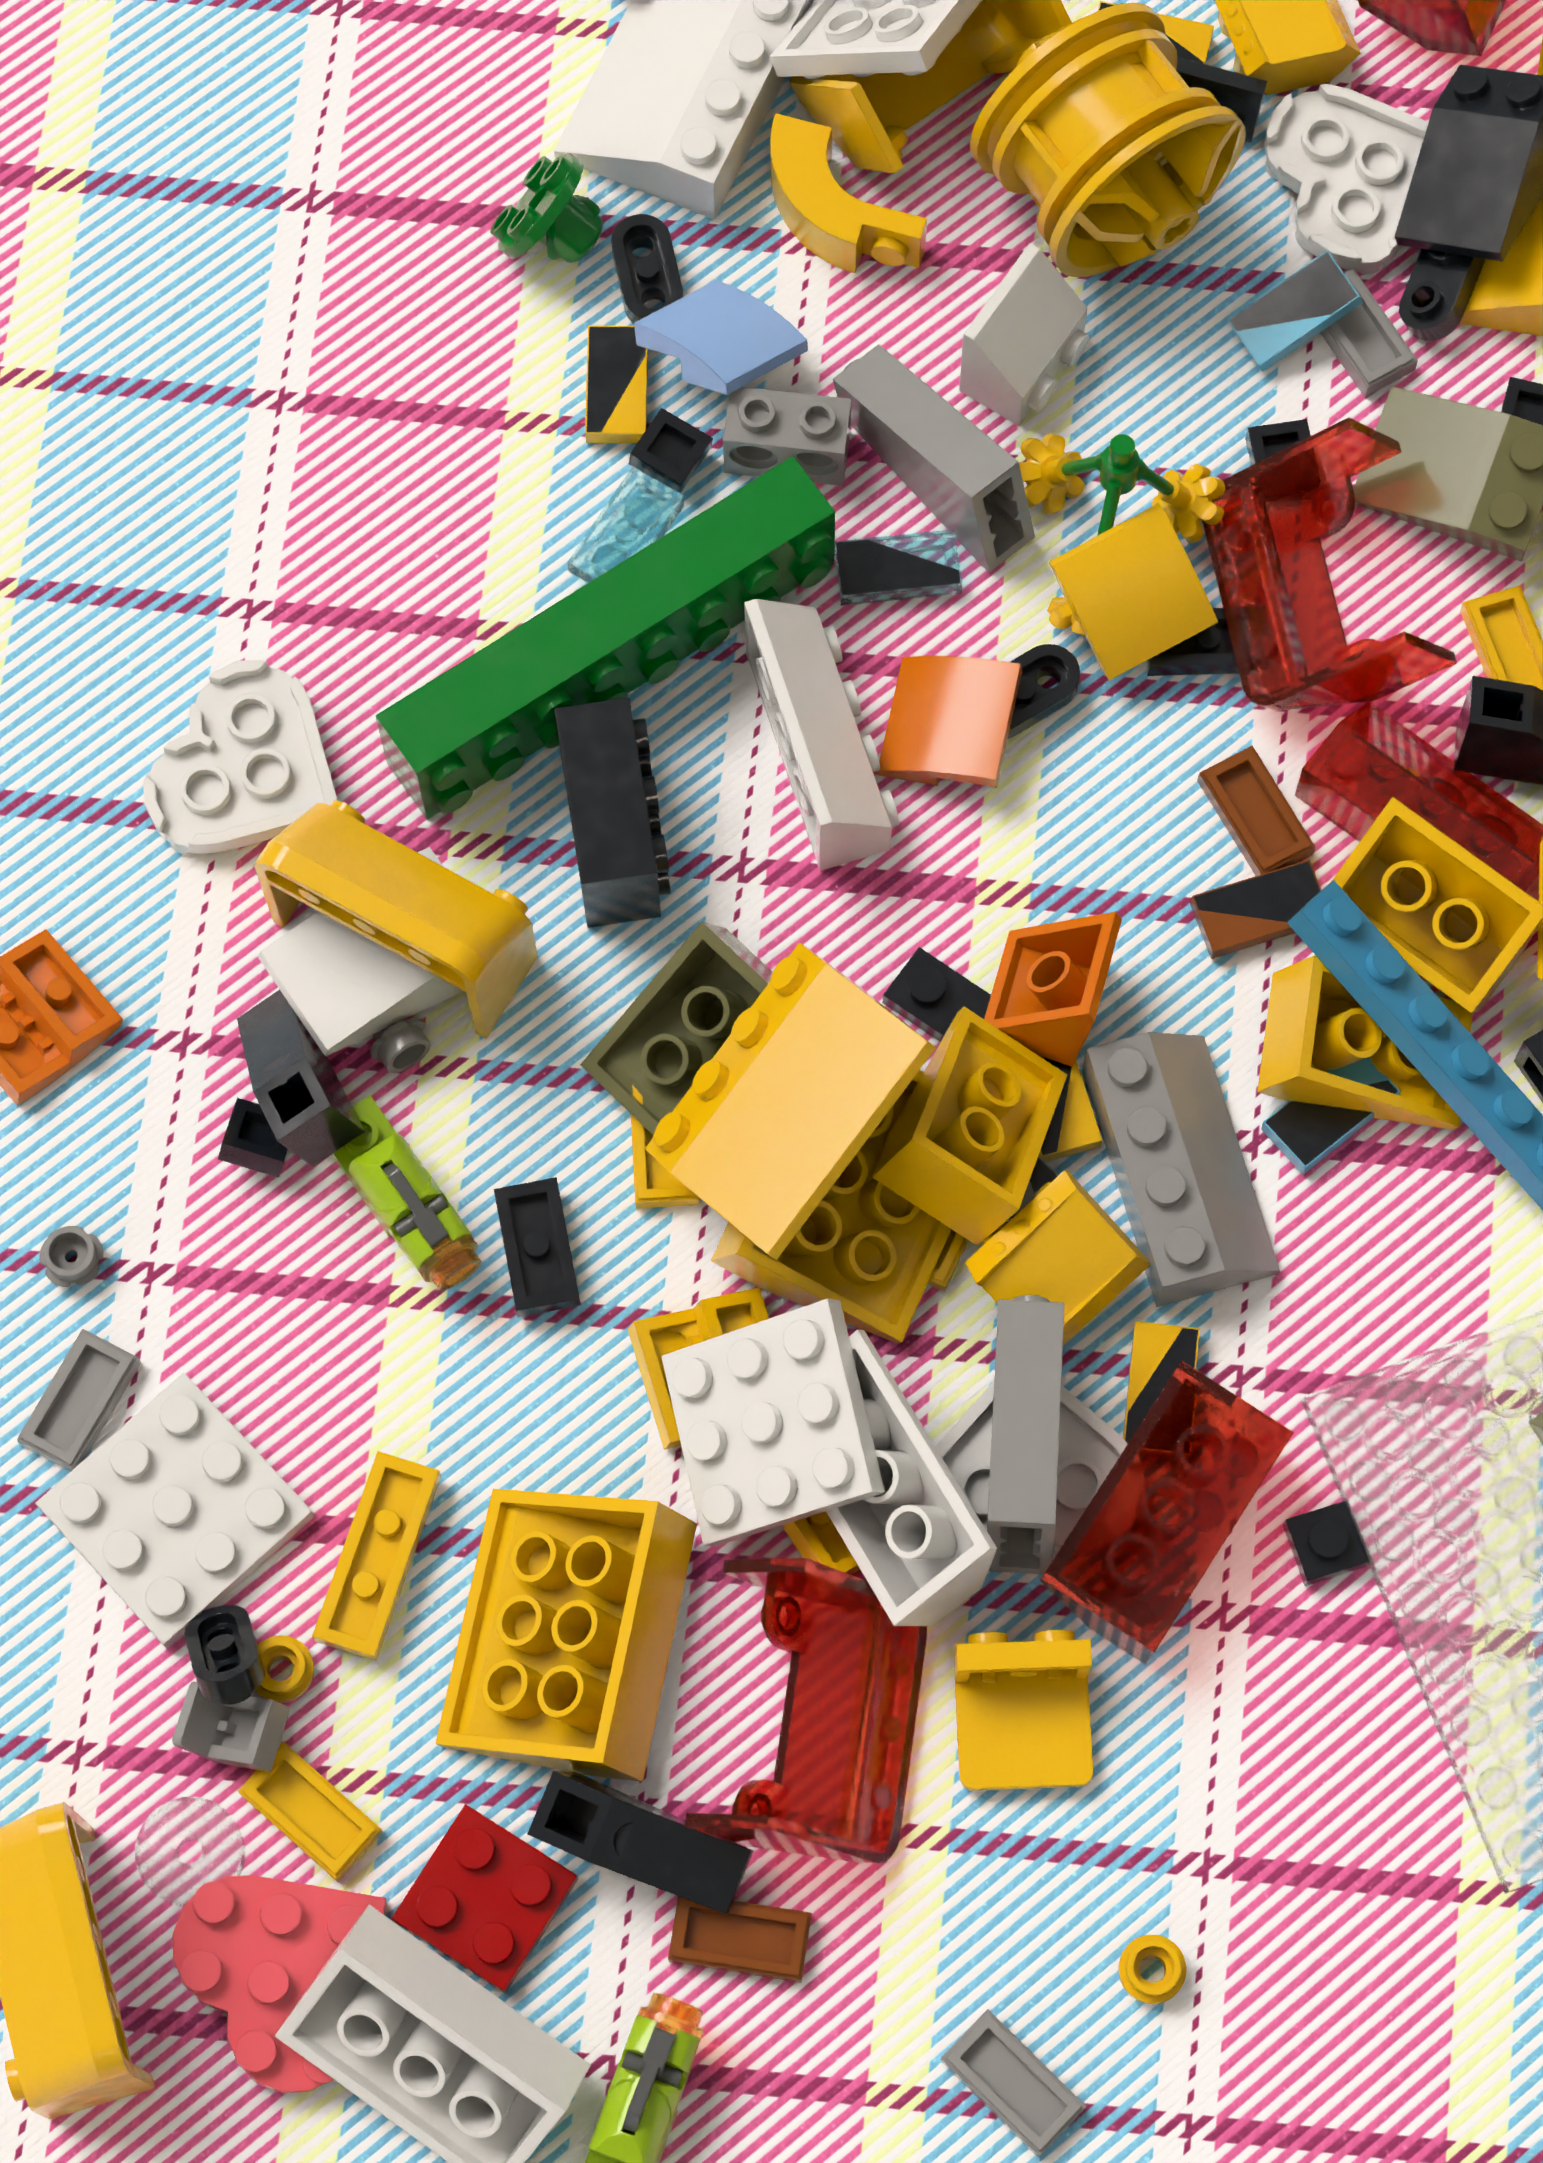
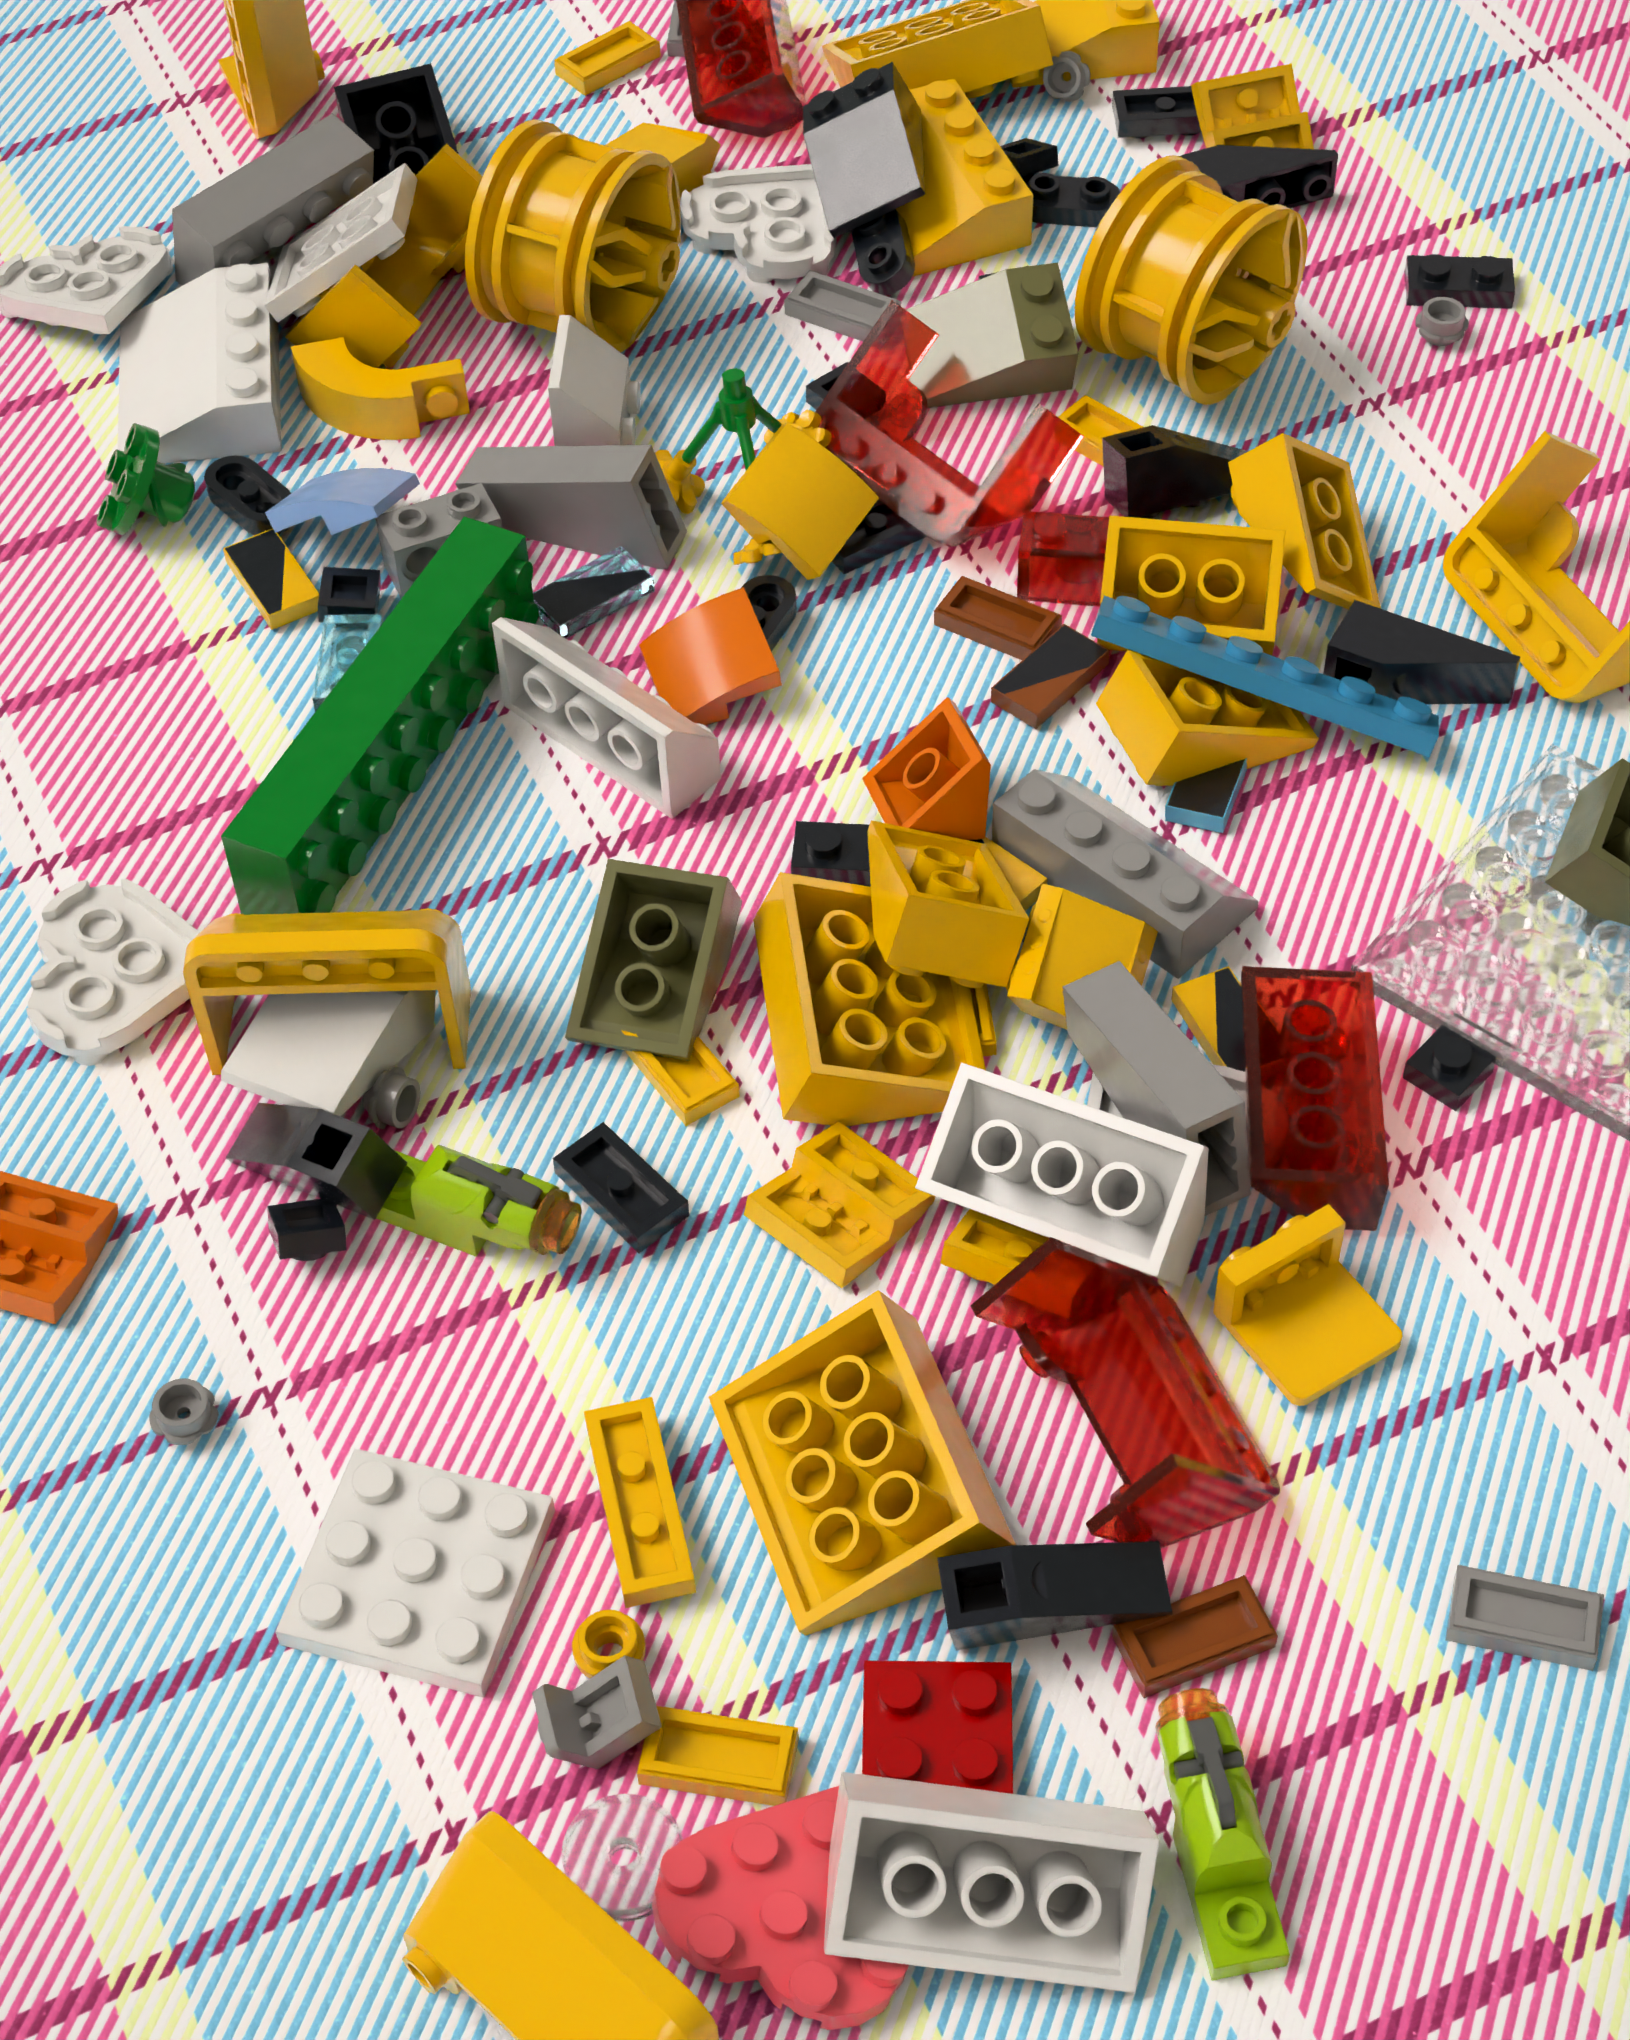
camera: 30 degrees left, 20 degrees down
(79, 1400) = (264, 1530): light grey tile -> none
(224, 1654) = (552, 1648): black plate -> none
(613, 812) = (471, 836): black brick -> none
(772, 1423) = (933, 1188): white plate -> none
(788, 1099) = (779, 928): yellow slope -> none
(1161, 1949) = (1572, 1438): yellow plate -> none
(1295, 311) = (786, 307): tile -> none

